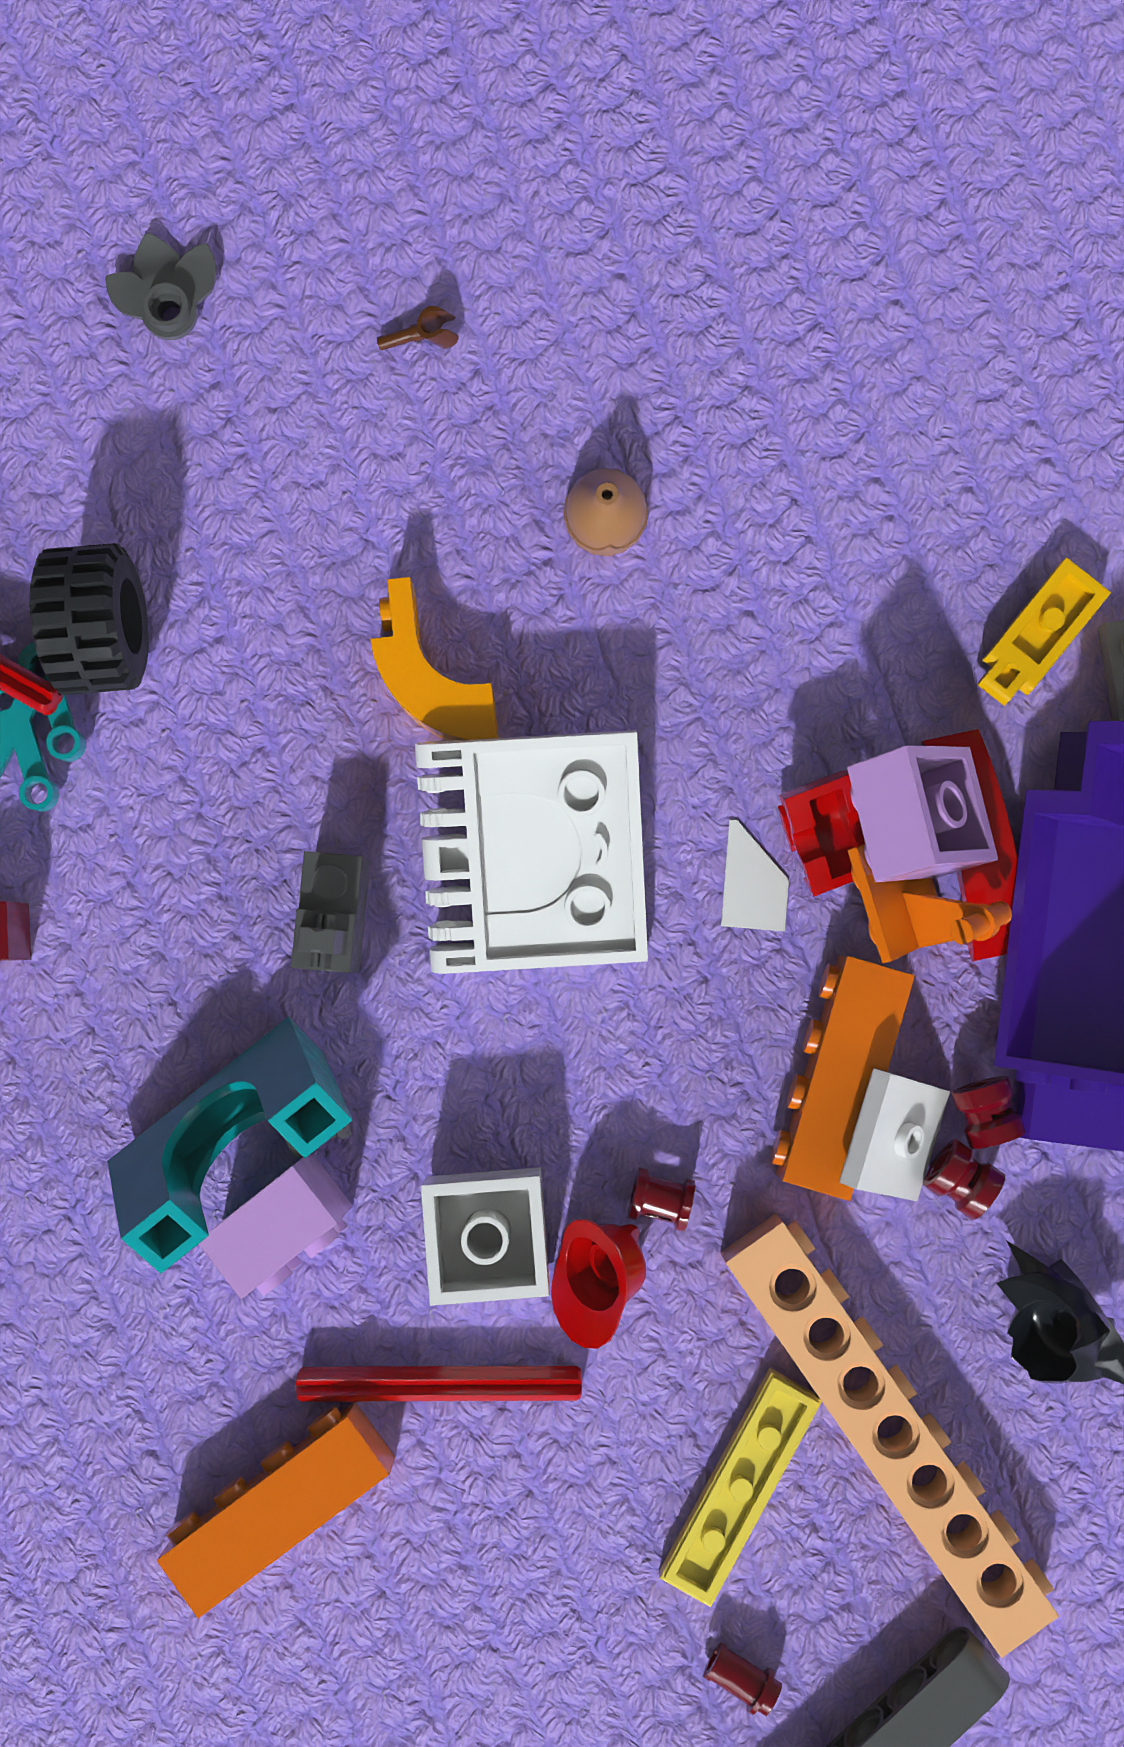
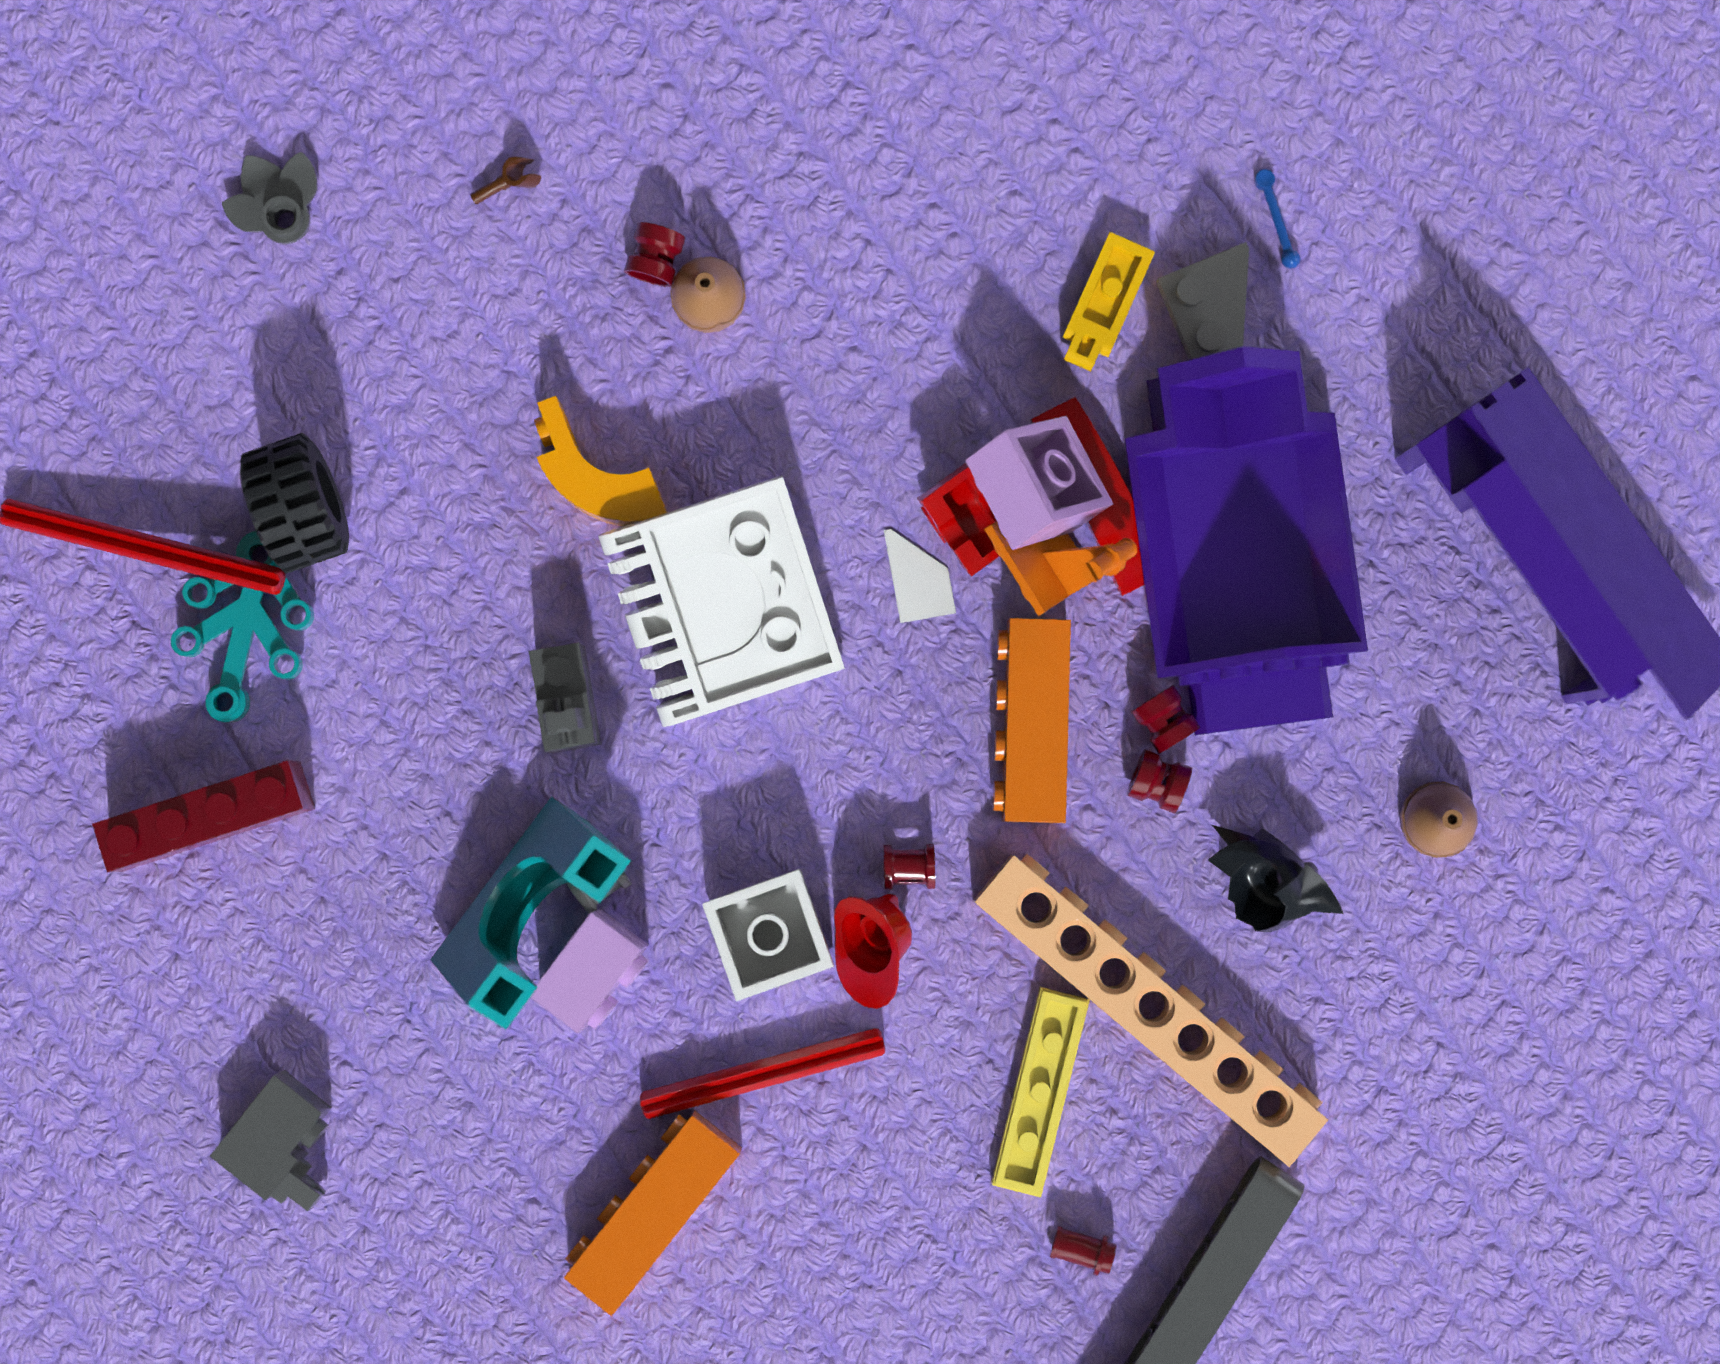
camera: 25 degrees left, 0 degrees up
(559, 452) = (654, 254): none -> dark red wheel
(894, 1136) = (1090, 758): white plate -> none

